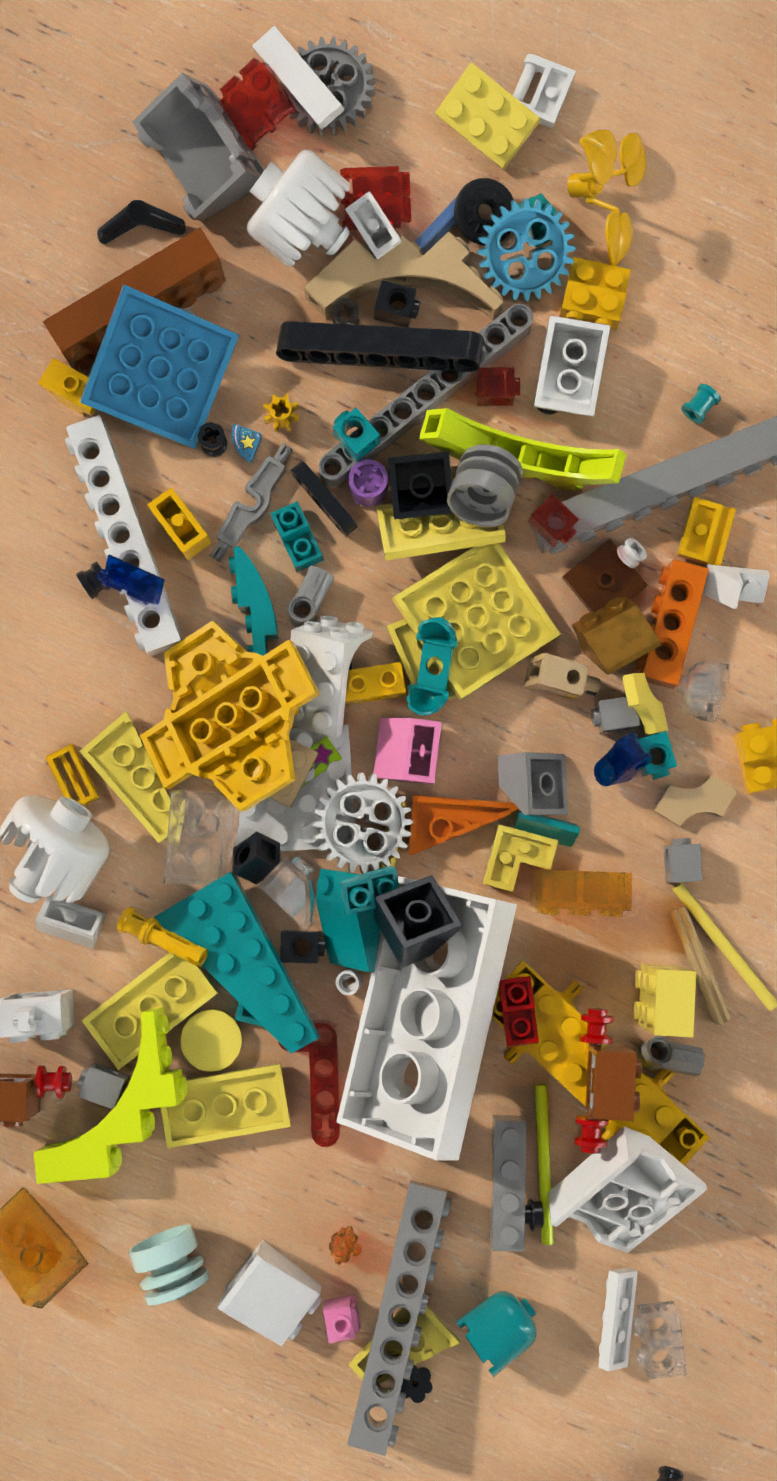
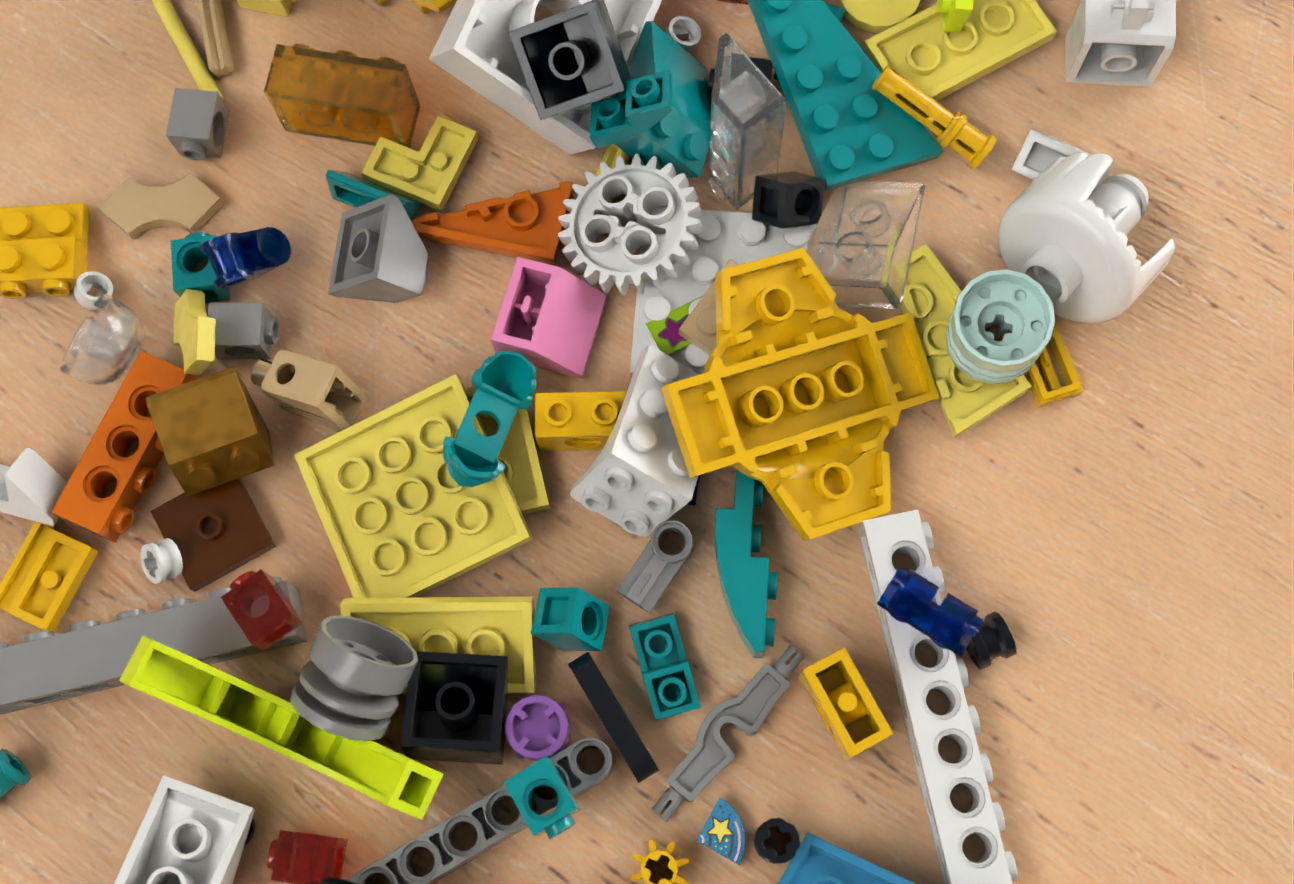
camera: 165 degrees left, 10 degrees down
(89, 765) = (1018, 310): none -> light aqua wheel
(359, 550) = (570, 619): none -> teal brick
(719, 726) = (86, 283): none -> white hinge

